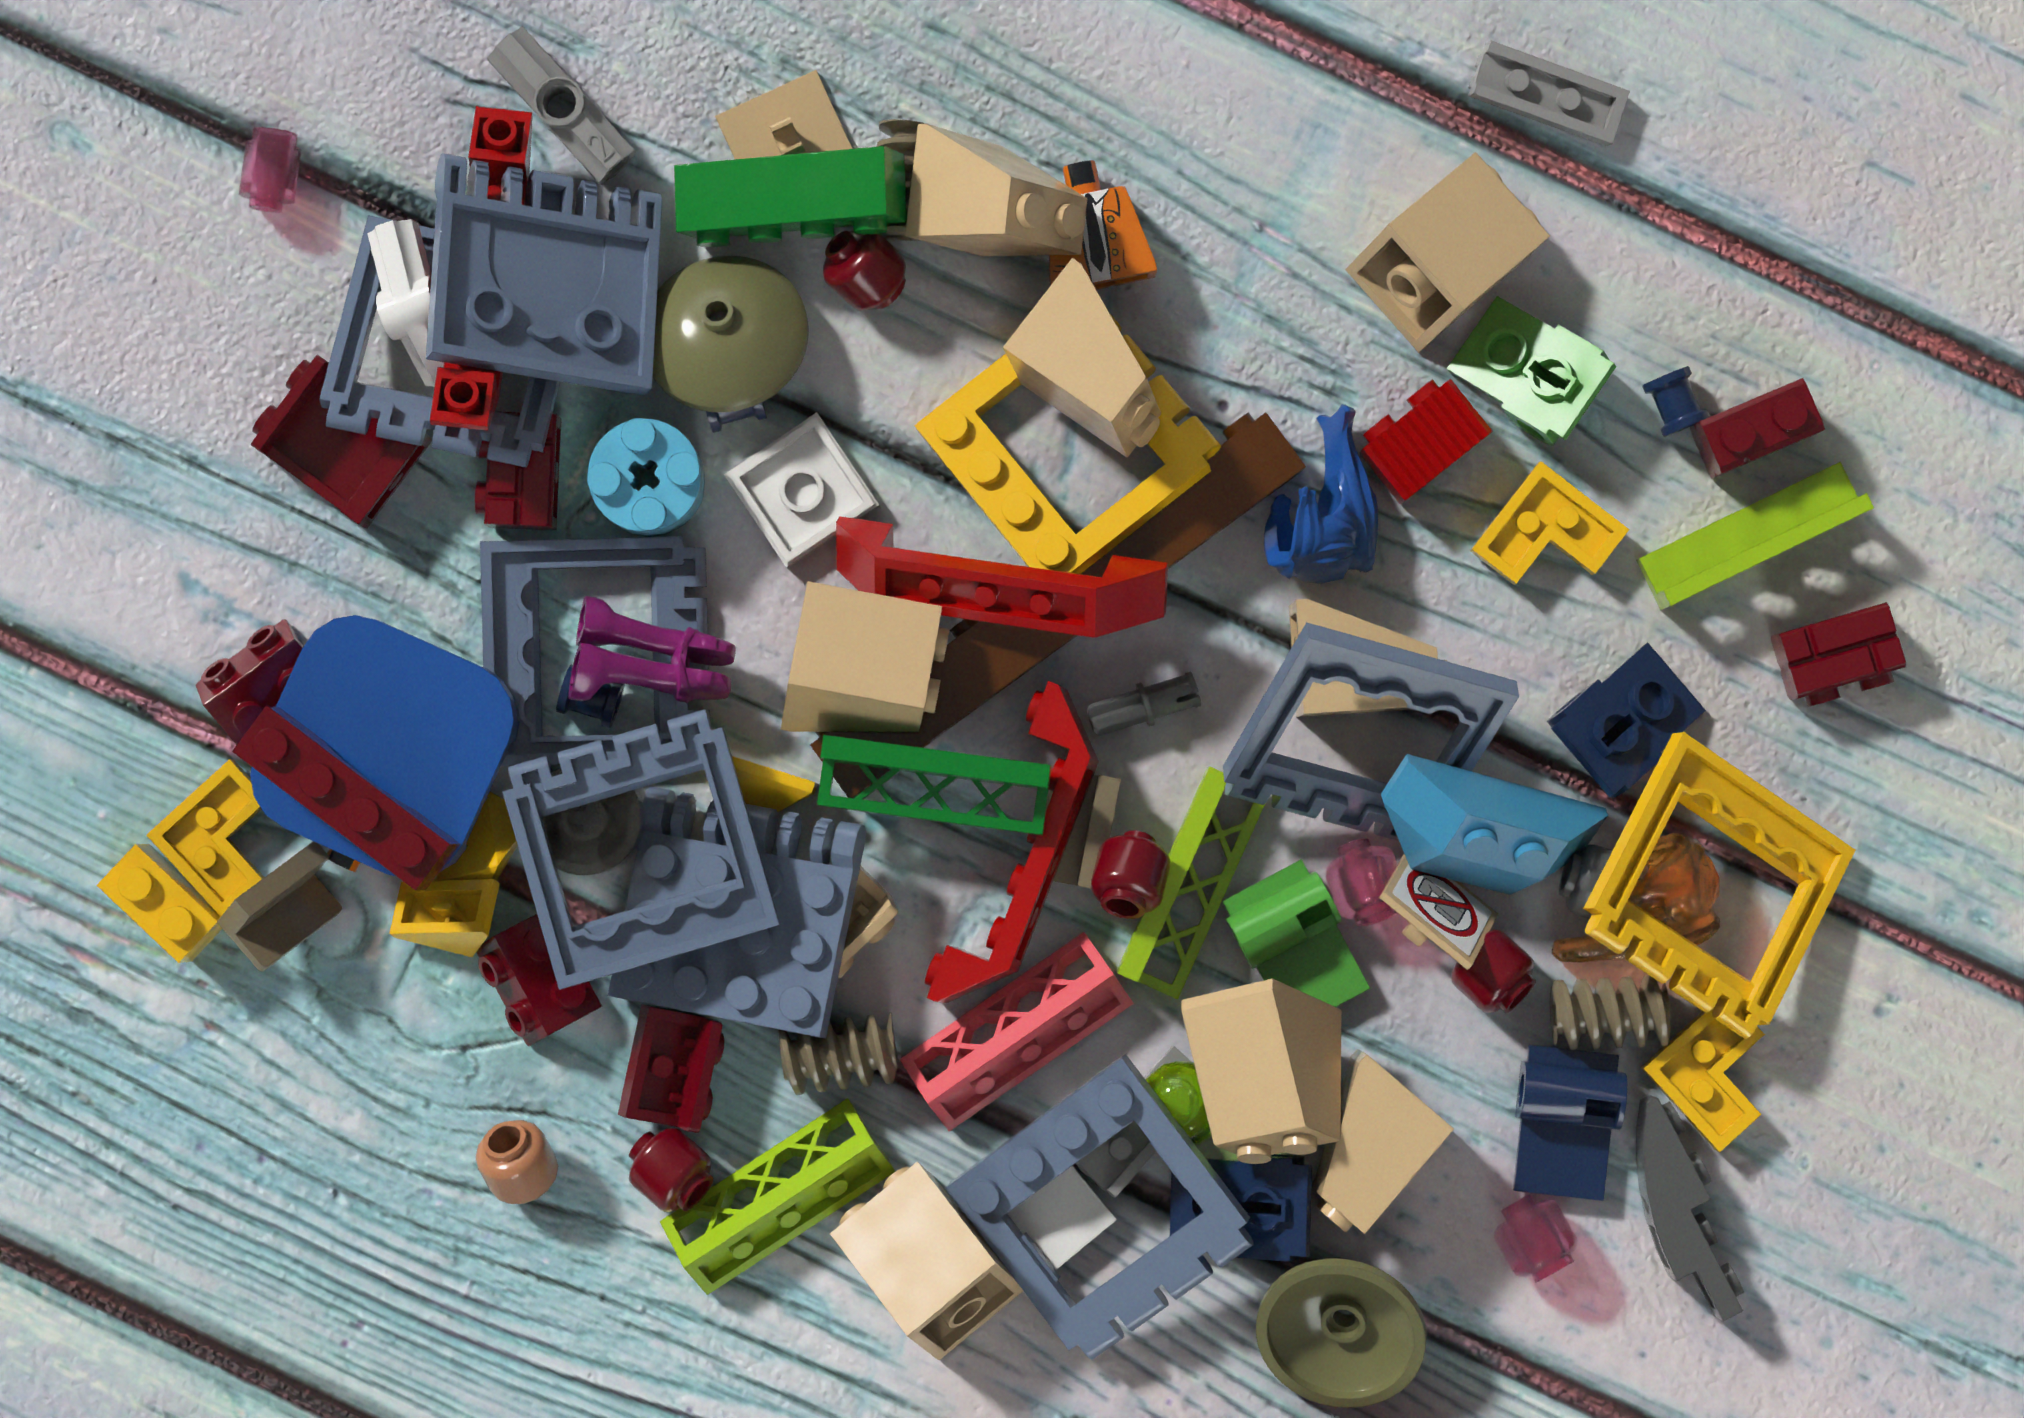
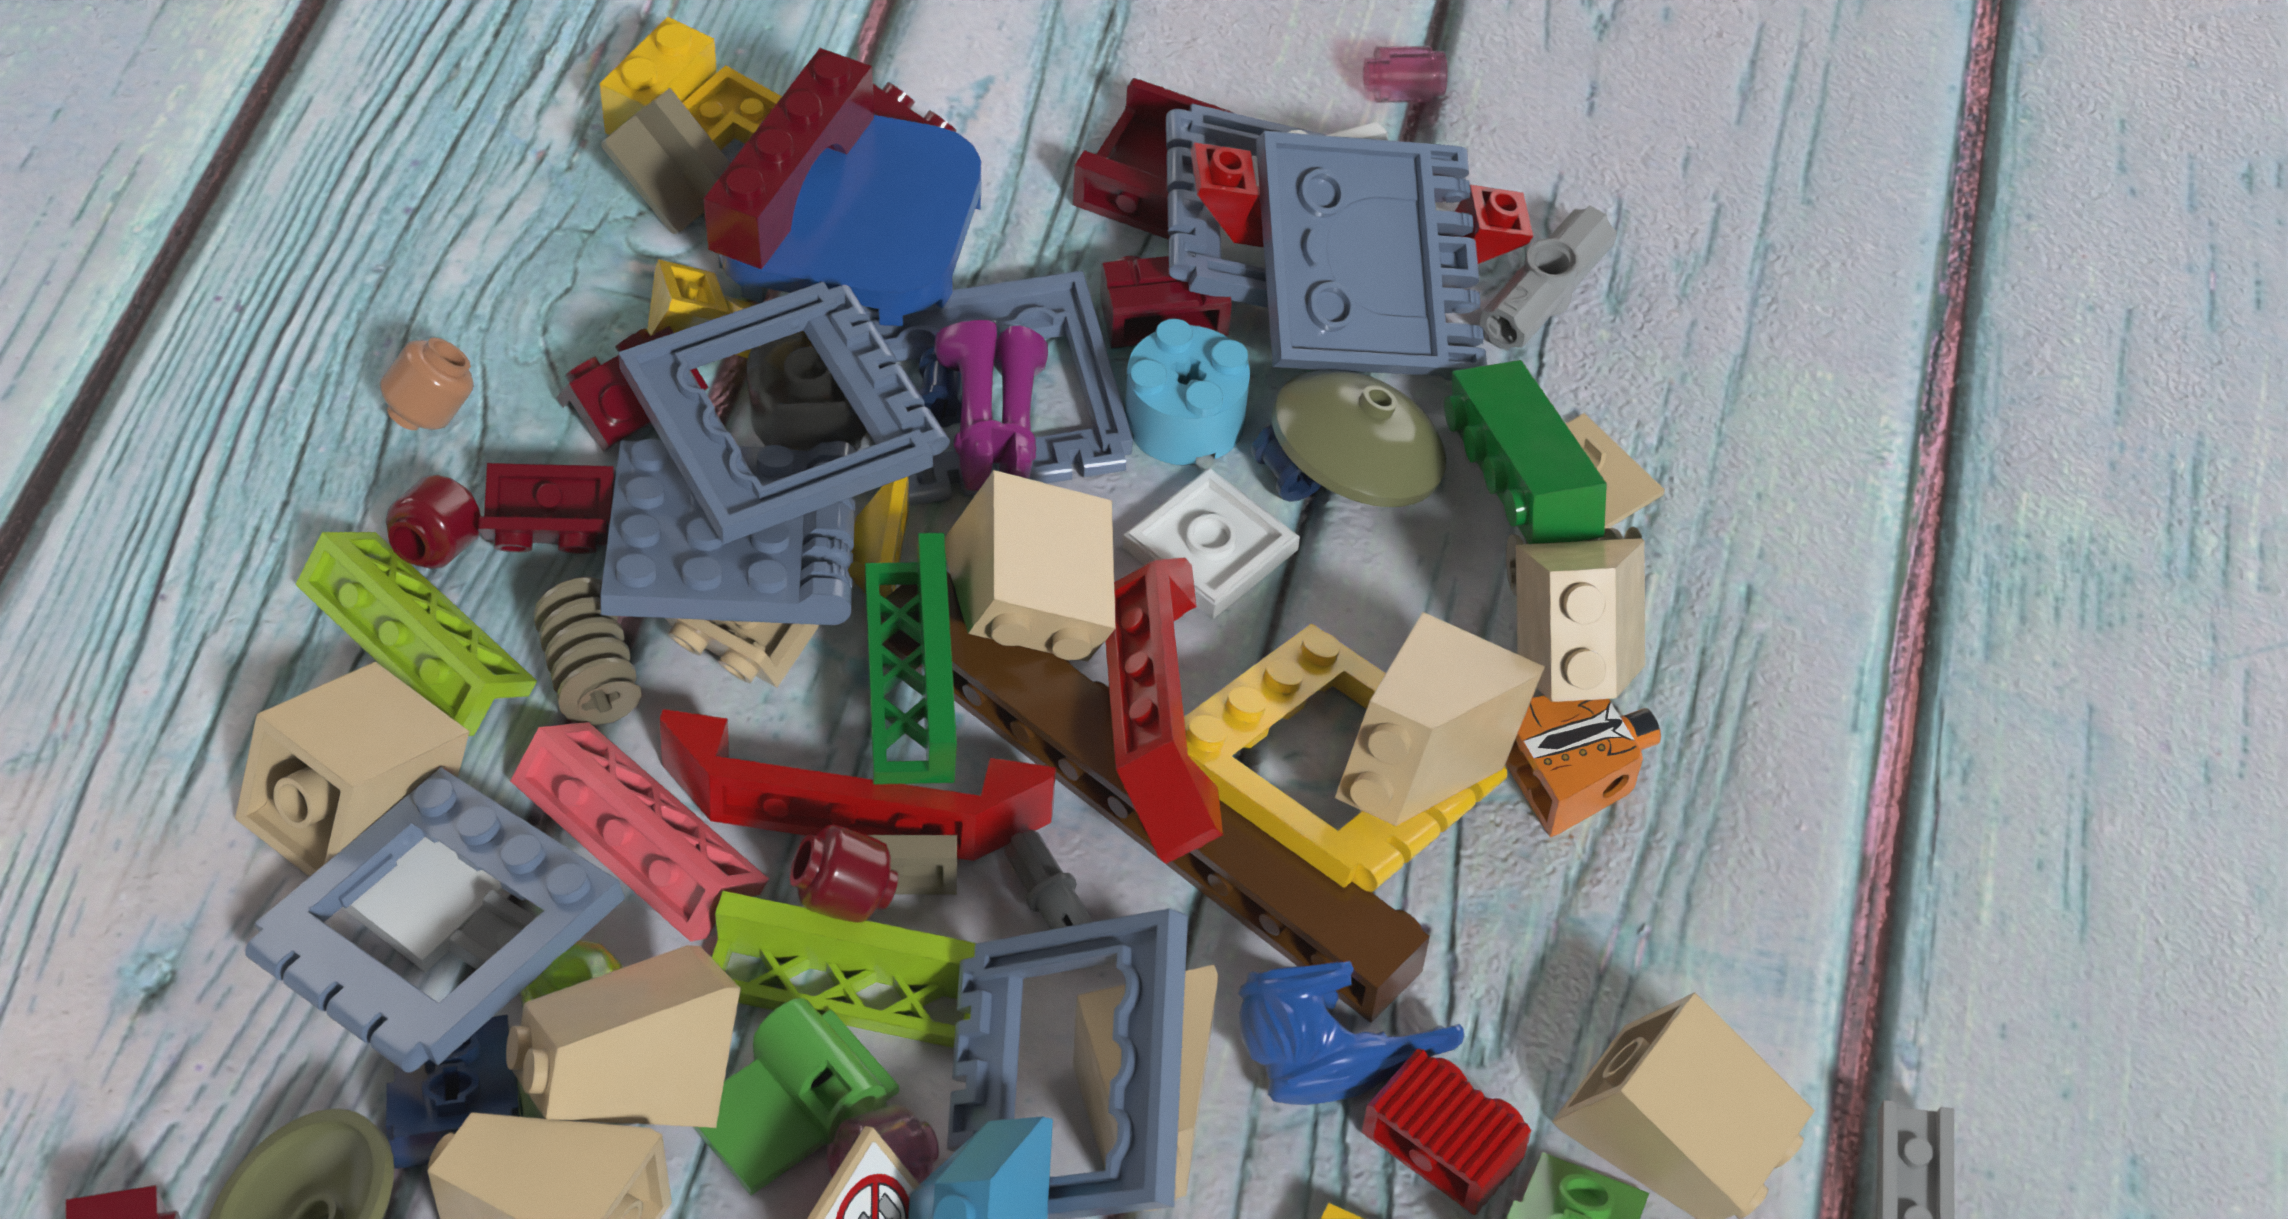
camera: 75 degrees right, 35 degrees down
(864, 270) = (1468, 542): dark red head -> none

